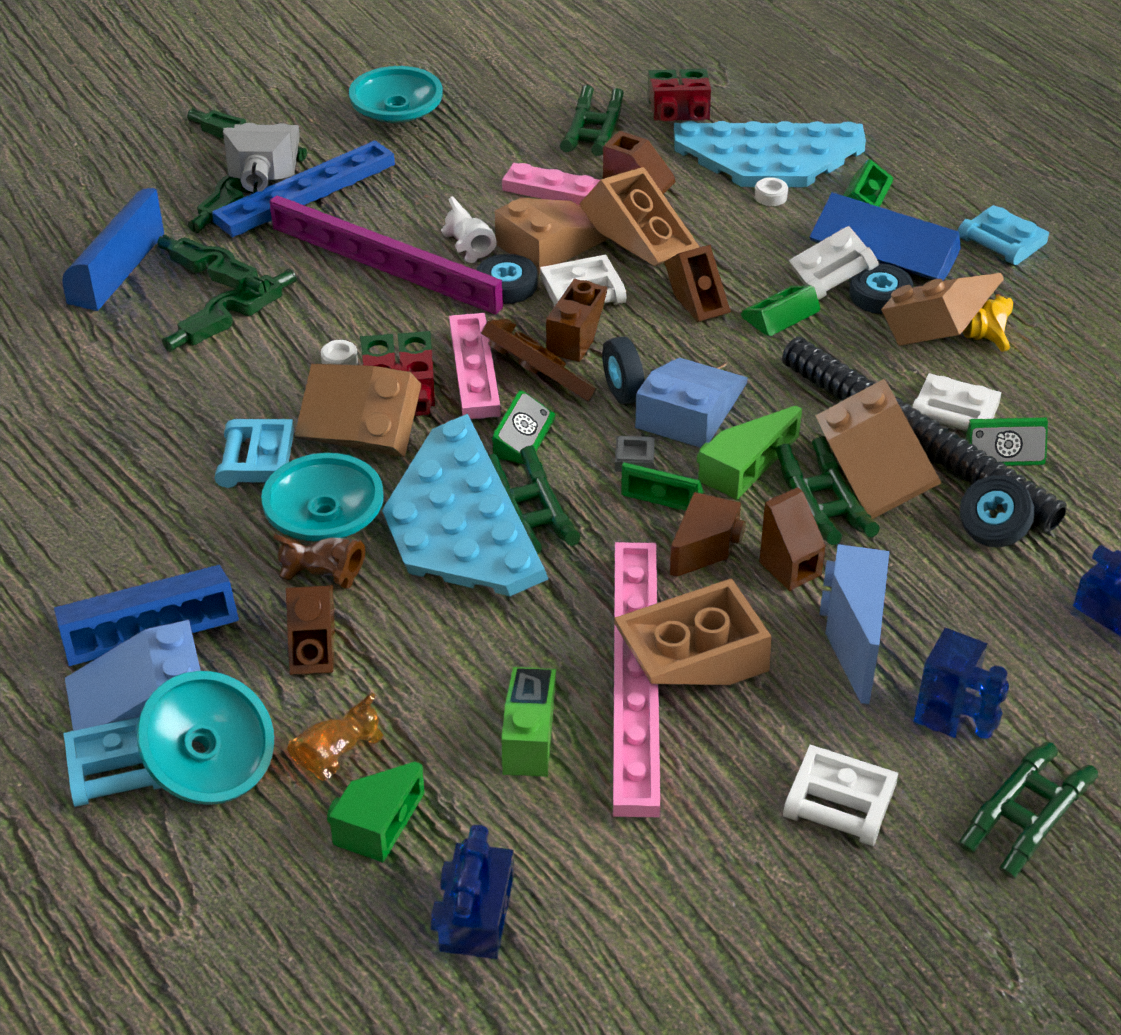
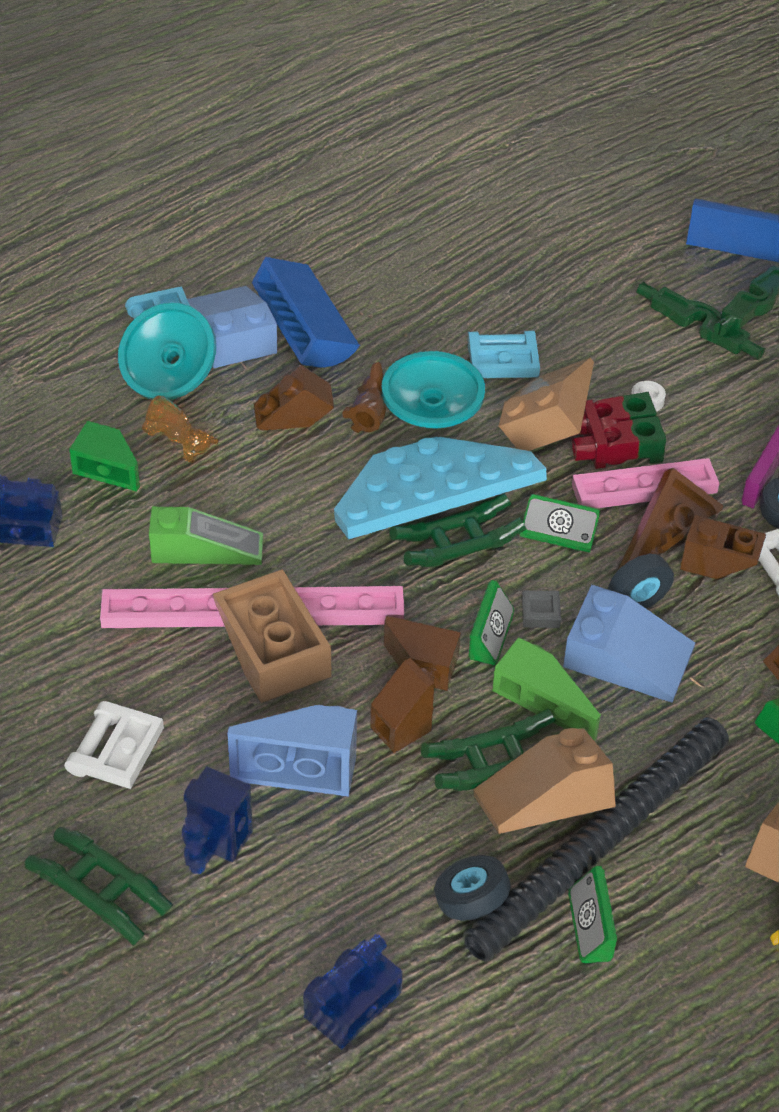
camera: 85 degrees right, 5 degrees up
(956, 402) = (669, 883): white plate -> none

